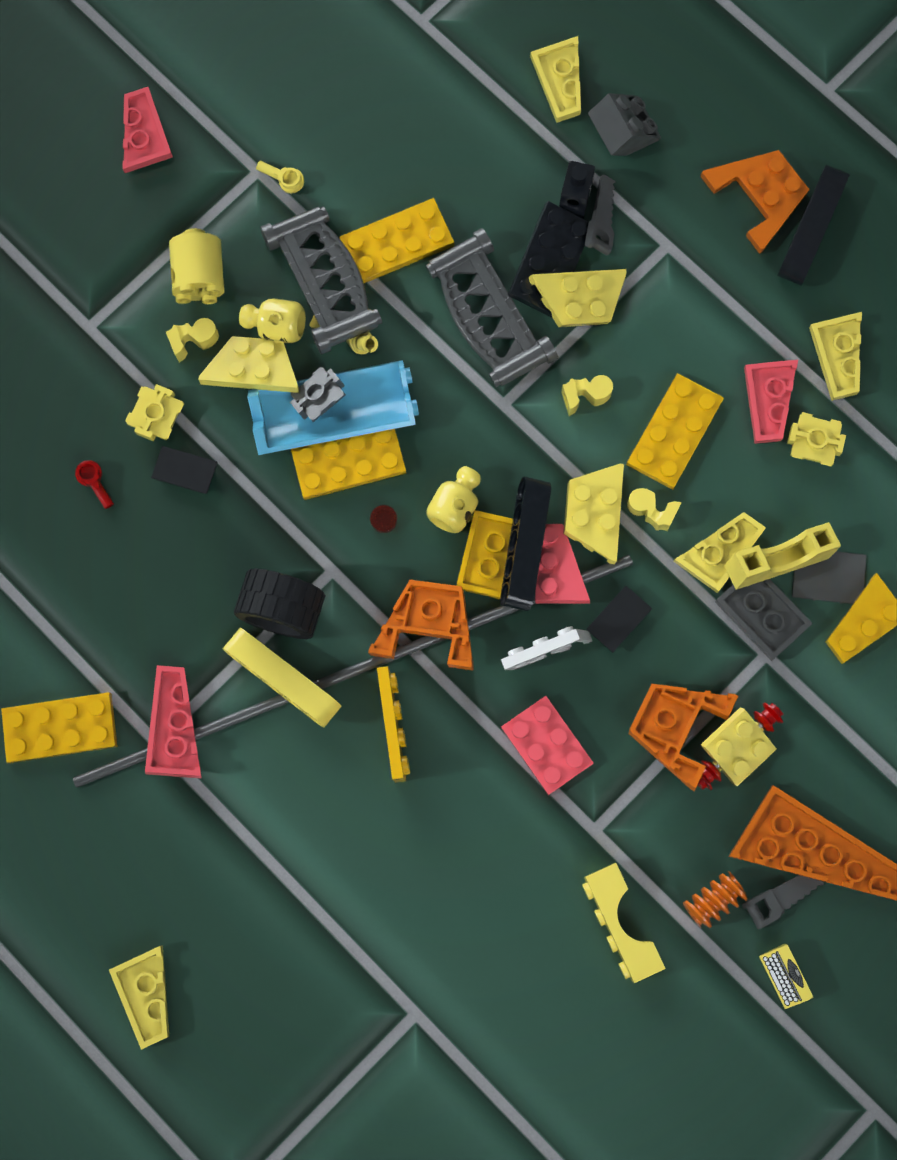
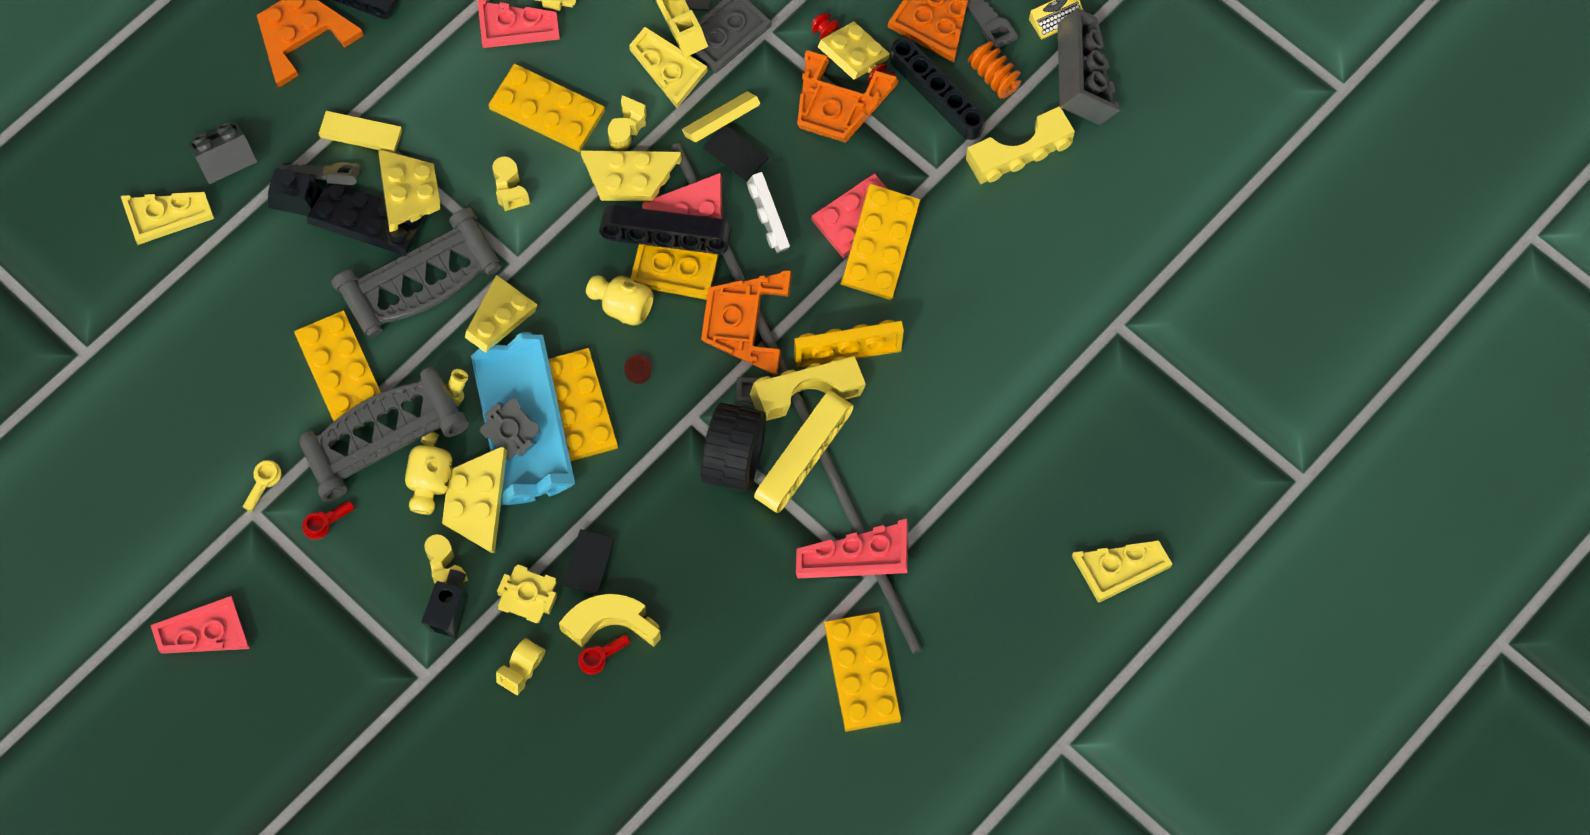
camera: 100 degrees left, 10 degrees down
(86, 409) = (522, 663): none -> light yellow leg
(133, 492) = (608, 610): none -> light yellow arch
(139, 336) = (442, 616): none -> black torso
(196, 267) = (367, 555): light yellow cylinder -> none
(237, 226) = (318, 524): none -> red plate
(337, 648) = (775, 393): none -> light yellow arch
(355, 628) = (744, 387): none -> dark grey tile
(440, 383) = (498, 314): none -> light yellow wing
(511, 764) = (880, 242): none -> yellow plate
(648, 252) = (360, 132): none -> light yellow tile
(660, 605) = (721, 116): none -> light yellow tile
(706, 829) = (935, 77): none -> black beam
(714, 999) = (1083, 68): none -> dark grey wedge

